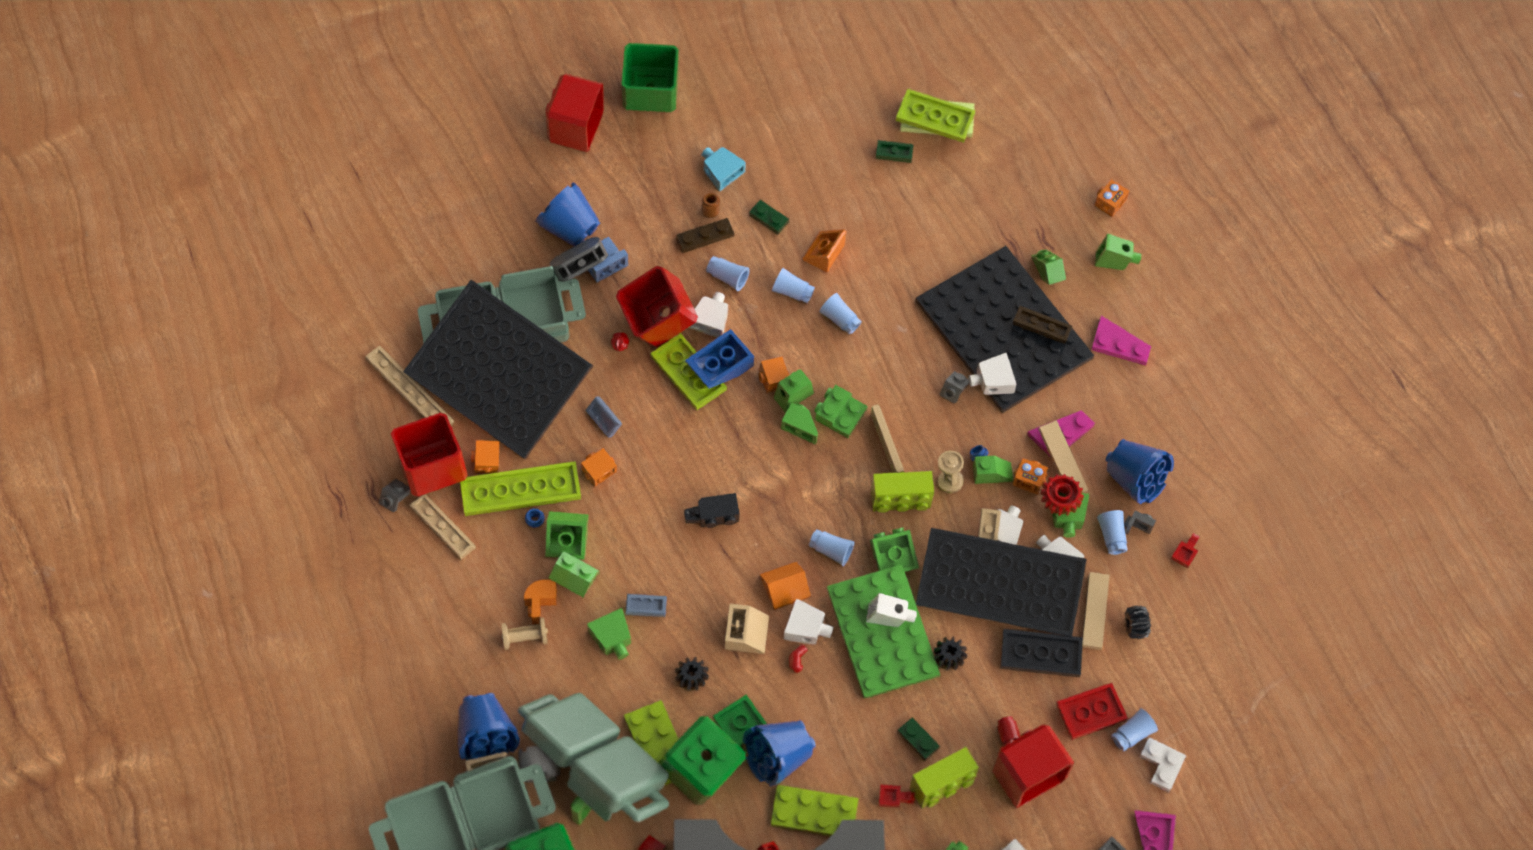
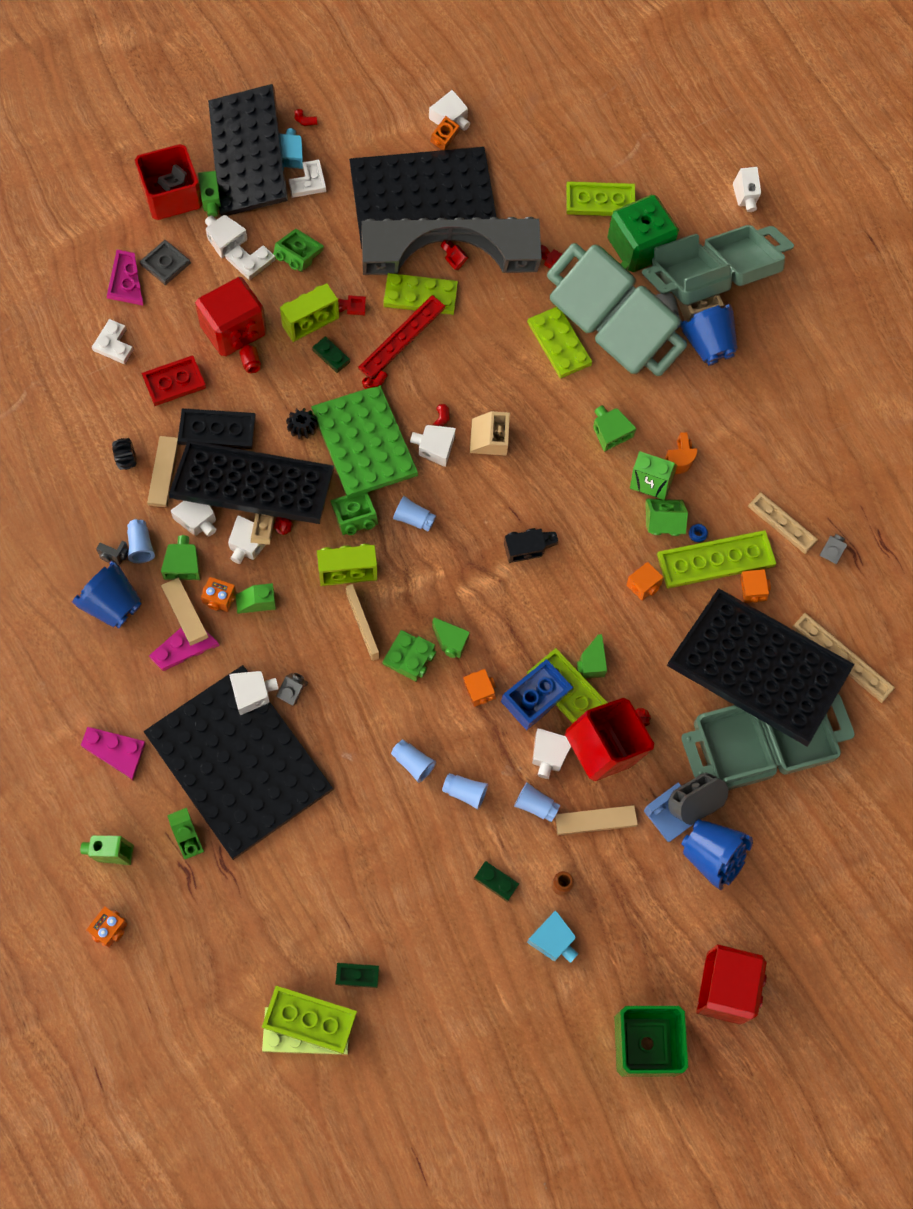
camera: 175 degrees right, 5 degrees up
(429, 454) = (825, 568): red plate -> none
(524, 633) = (691, 422): tan hose -> none
(603, 417) = (646, 634): sand blue plate -> none
(646, 605) = (583, 456): sand blue plate -> none
(661, 395) = (592, 660): none -> bright green slope
(673, 259) = (596, 820): none -> tan tile
(691, 666) = (529, 396): black gear -> none
(691, 773) = (523, 322): green plate -> none
(705, 235) = (564, 853): dark brown plate -> none
(738, 718) = (489, 359): green plate -> none
(777, 750) = (454, 327): blue cone -> none
(786, 585) = (457, 483): orange slope -> none
(795, 387) = (456, 668): bright green torso -> none
(825, 249) = (433, 840): orange slope -> none
(838, 752) = (401, 337): none -> red tile
(868, 701) = (379, 380): none -> red arm
(889, 611) = (359, 439): white torso -> none
(950, 464) = (299, 585): tan hose -> none
(977, 451) = (274, 616): blue plate -> none
(1042, 324) = (197, 753): dark brown plate -> none
(1060, 504) = (191, 571): red gear -> none
(1134, 730) = (136, 363): light blue plant -> none
(1185, 552) = (69, 526): red plate -> none

